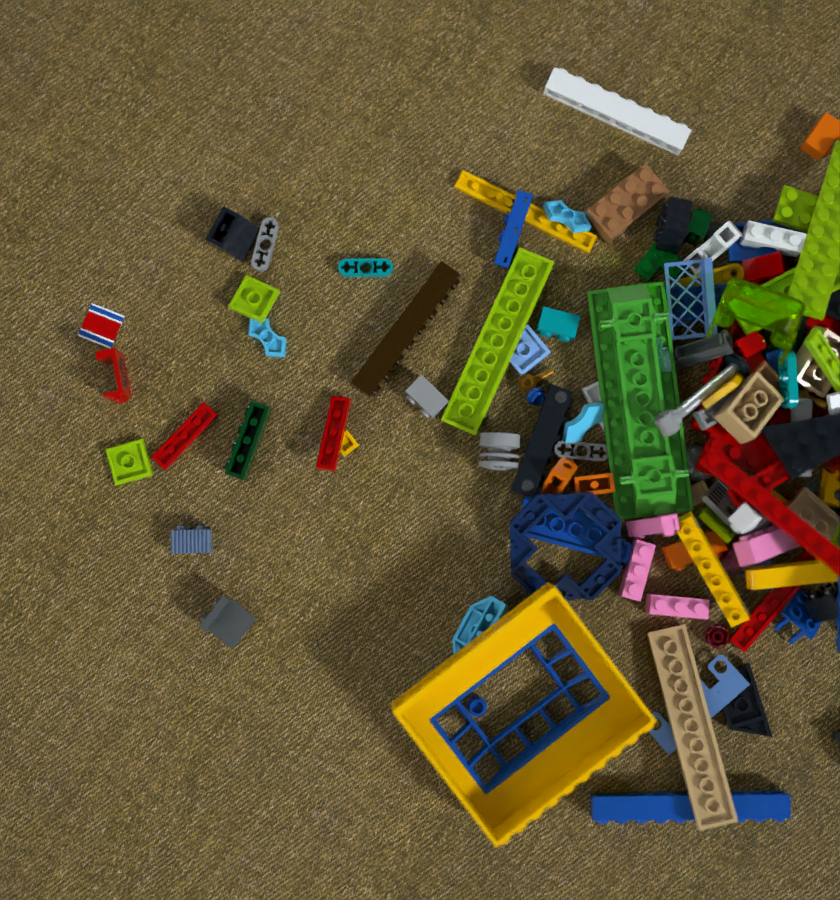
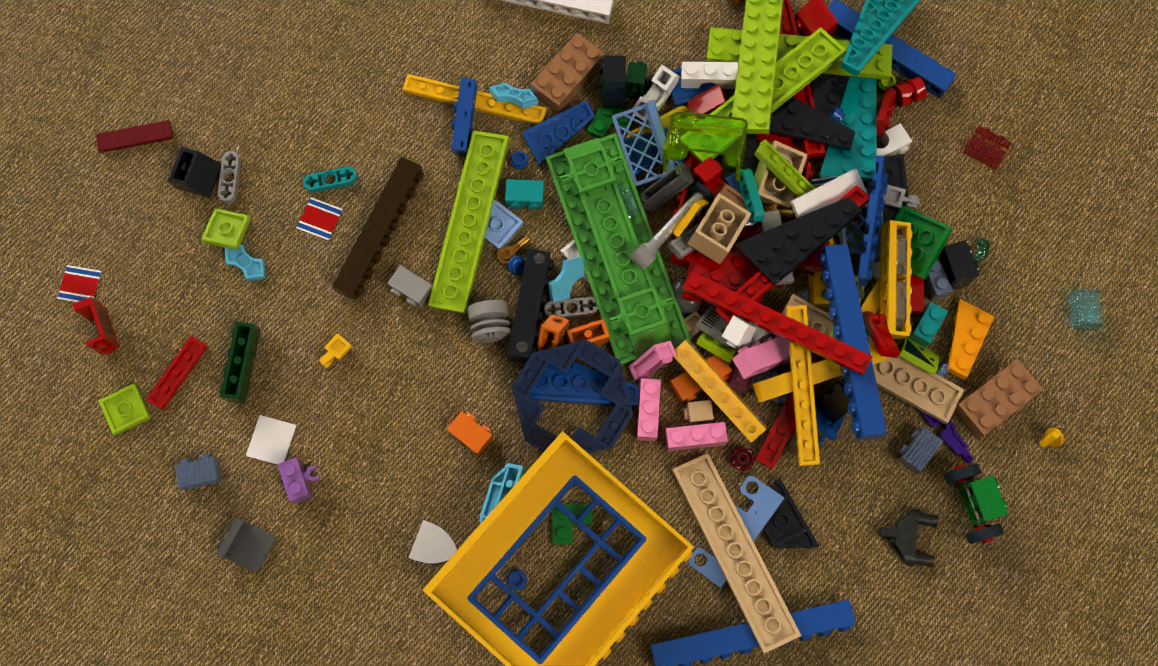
camera: 10 degrees left, 10 degrees down
(176, 181) = (134, 136): none -> dark red tile
(265, 521) = (271, 440): none -> white sticker
(285, 568) = (296, 480): none -> medium lavender brick
(333, 433) = (324, 339): red tile -> none
(347, 305) = (319, 218): none -> sticker
(403, 655) = (432, 544): none -> white sticker
(459, 556) = (470, 433): none -> orange brick
(530, 664) = (563, 525): none -> green plate
(559, 286) = (519, 160): none -> blue plate
(600, 264) = (556, 131): none -> blue wing
(685, 582) = (698, 412): none -> tan brick
(794, 591) = (803, 395): none -> yellow tile

